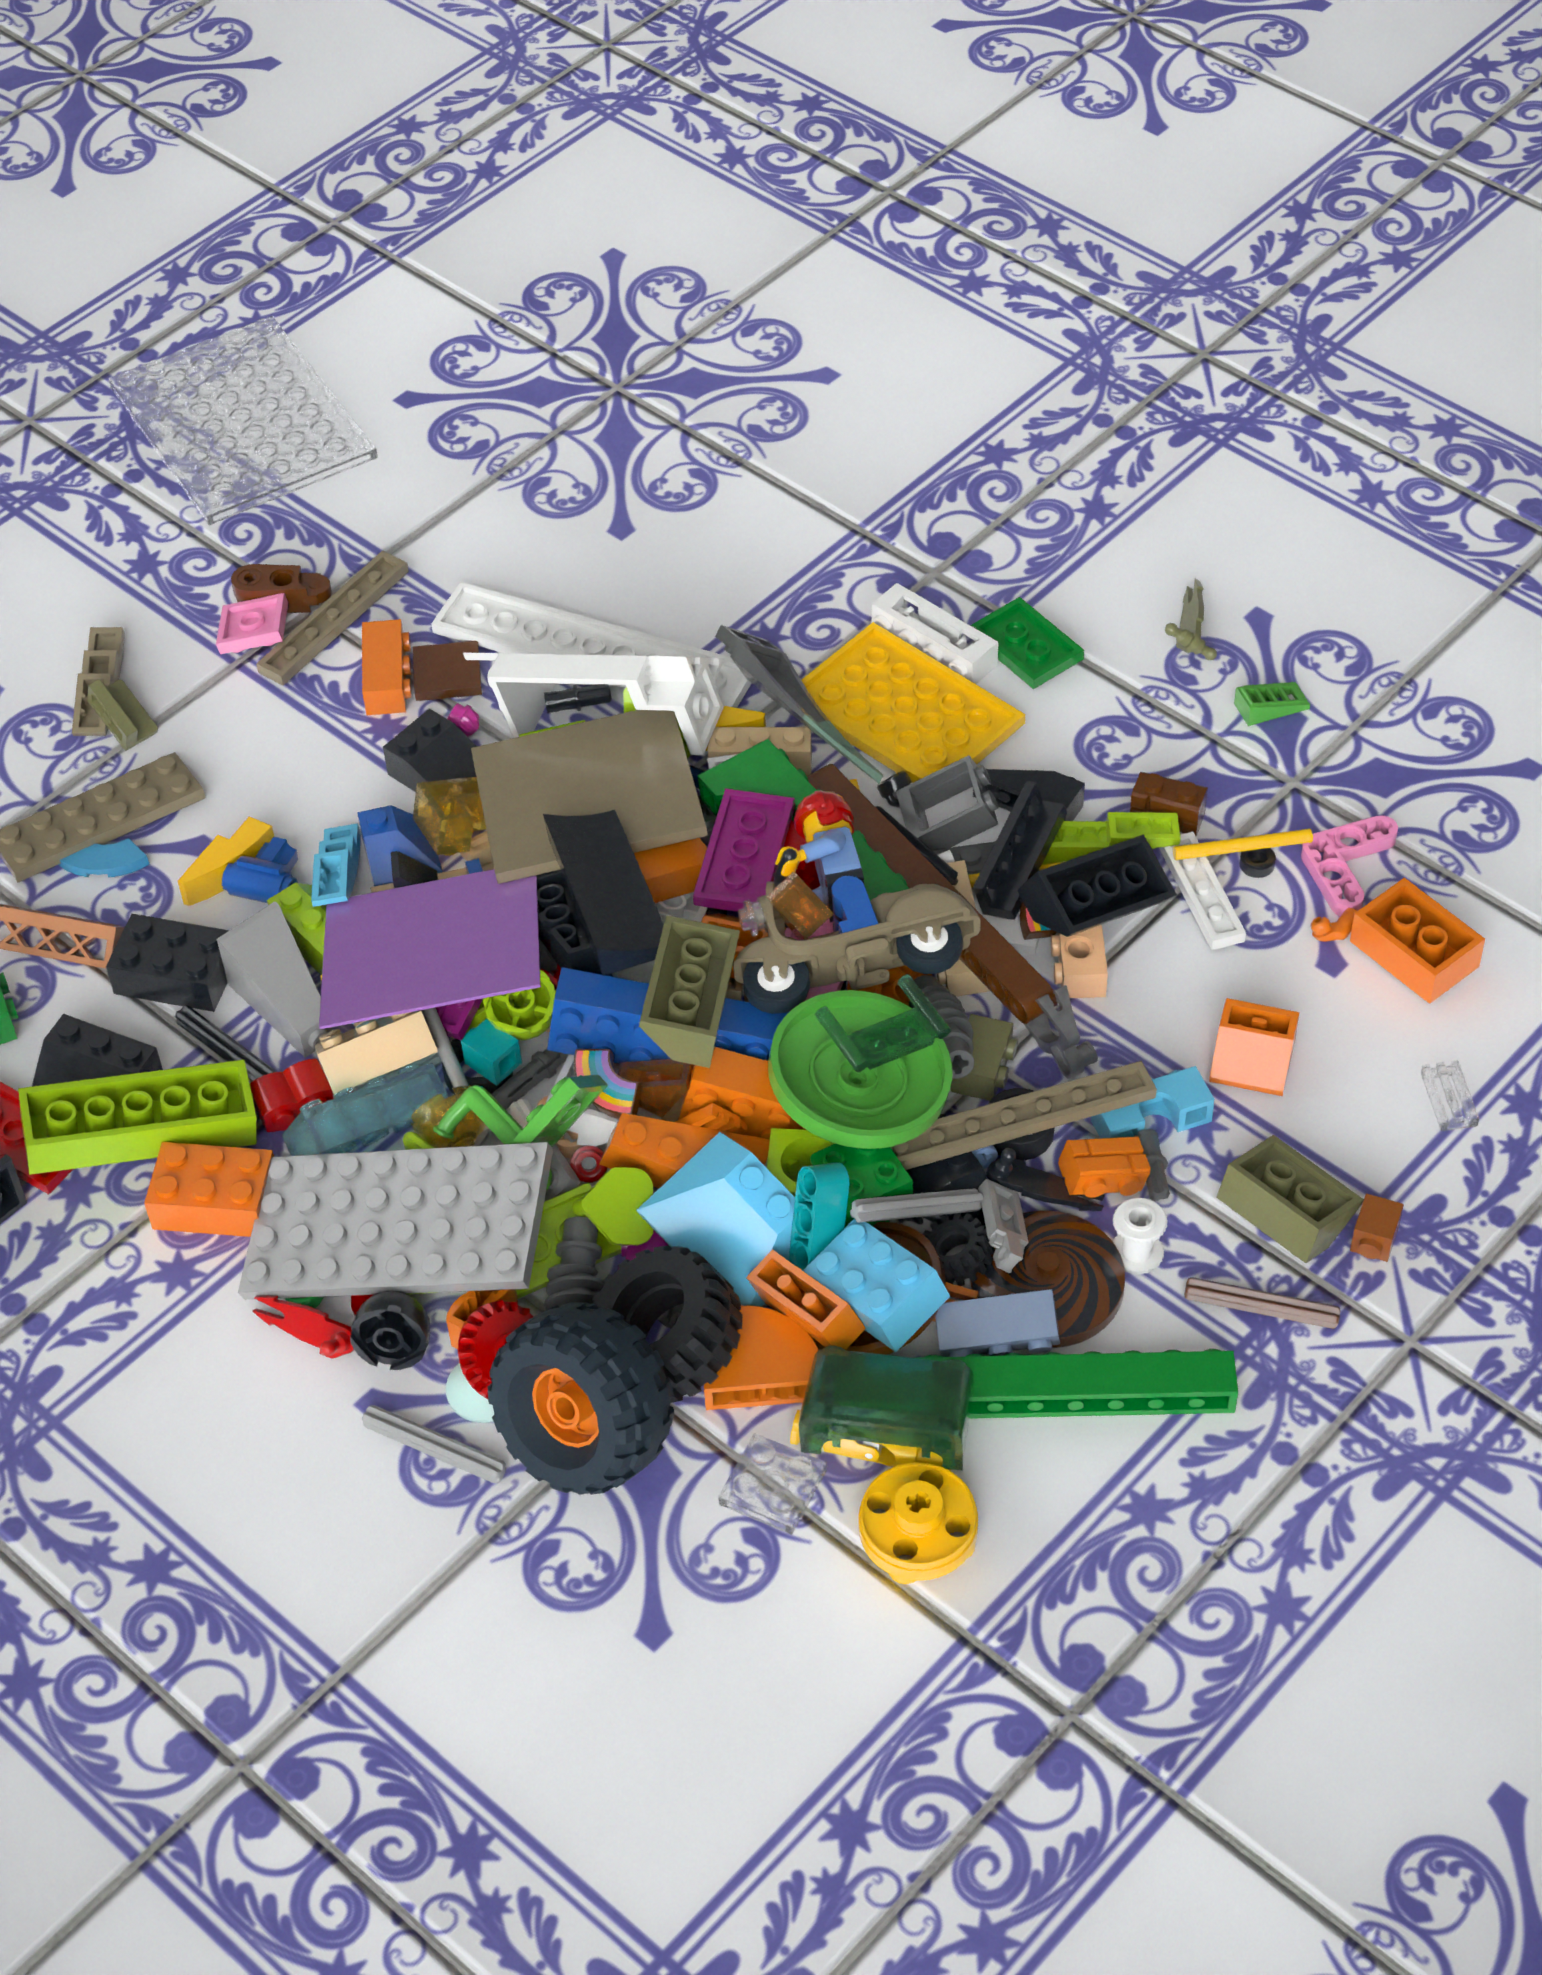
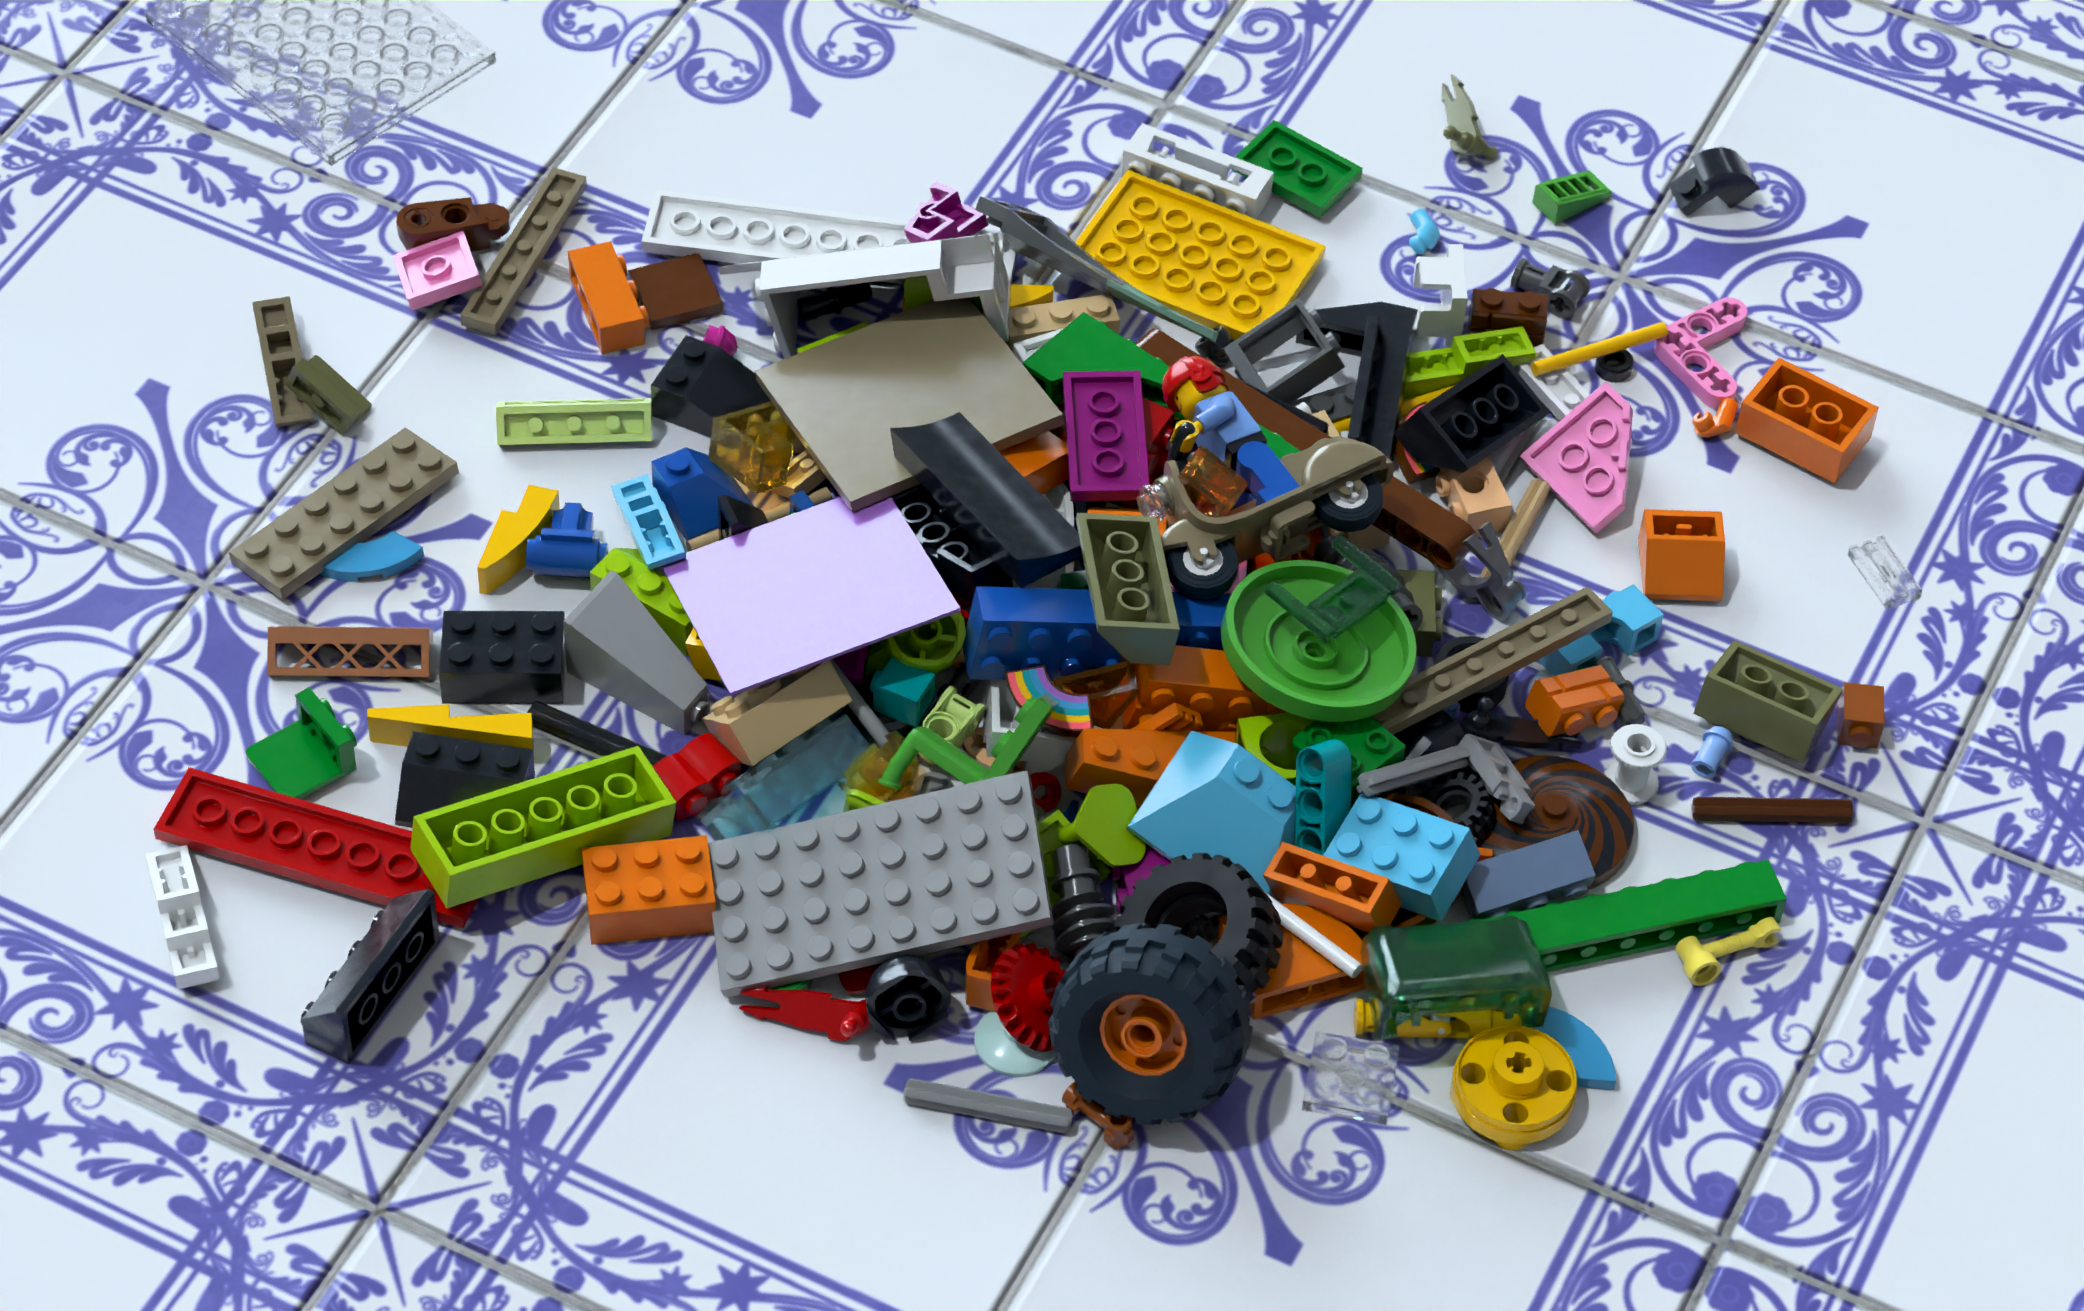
camera: 20 degrees left, 0 degrees up
(142, 1026) = (396, 725): none -> yellow slope
(315, 768) = (574, 421): none -> yellowish green fence
(526, 1083) = (954, 718): none -> yellowish green piece
(536, 1492) = (1116, 1133): none -> dark orange bar
(691, 640) = (944, 217): none -> magenta slope
(767, 1336) = (1317, 940): none -> white bar
(994, 1495) = (1588, 1052): none -> dark azure tile
(1114, 995) = (1522, 520): none -> tan axle
(1120, 758) = (1450, 277): none -> white panel
(1124, 717) = (1427, 232): none -> medium azure arm
(1140, 1434) = (1701, 961): none -> light yellow brick
(1197, 941) = (1588, 457): none -> bright pink plate
(1221, 781) = (1554, 284): none -> dark grey connector
(1229, 1229) = (1716, 744): none -> light blue pin
(1406, 701) = (1715, 173): none -> black brick

